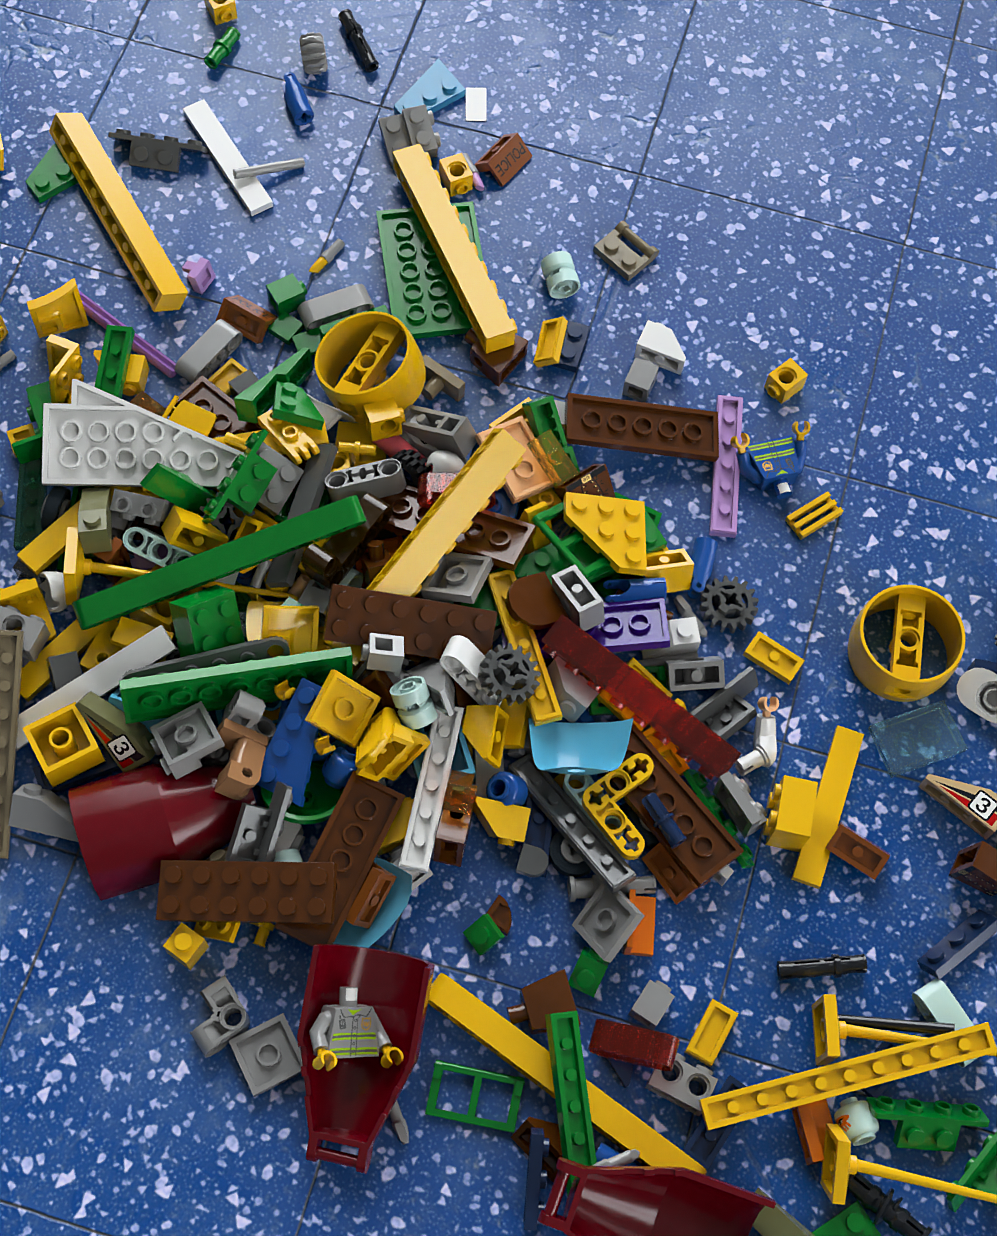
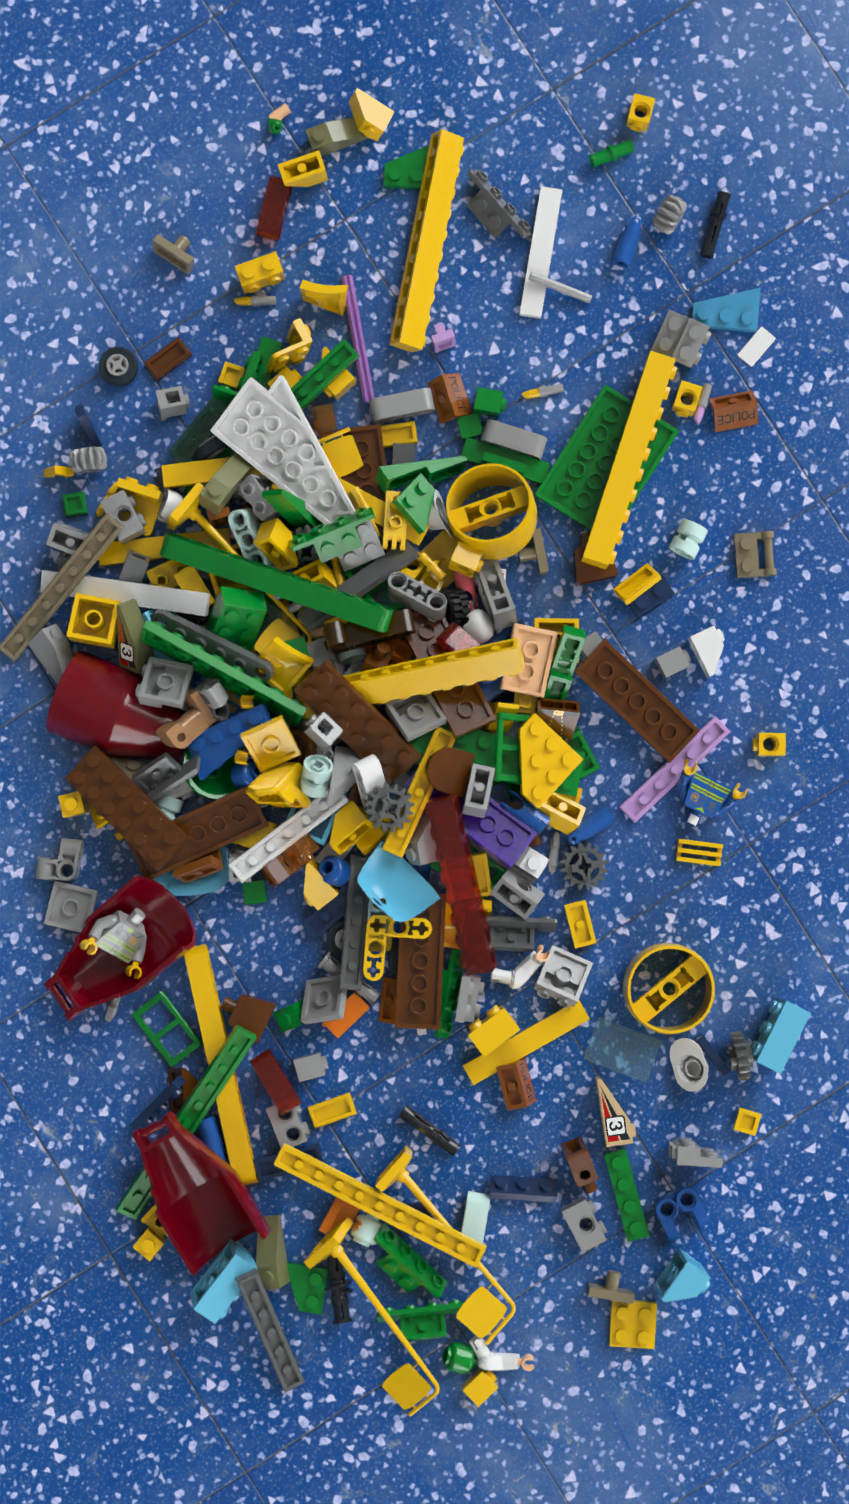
camera: 50 degrees right, 20 degrees up
(445, 883) = (254, 892): none -> green tile
(483, 934) = (250, 942): green plate -> none
(501, 914) = (270, 938): reddish brown tile -> none
(532, 861) = (313, 925): dark grey tile -> none
(552, 458) = (549, 681): clear yellow plate -> none
(621, 1159) = (208, 1135): light grey piece -> none
(663, 820) = (406, 972): dark blue axle -> none
(806, 716) = (563, 977): none -> light grey plate
(898, 1024) = (437, 1197): black bar -> none

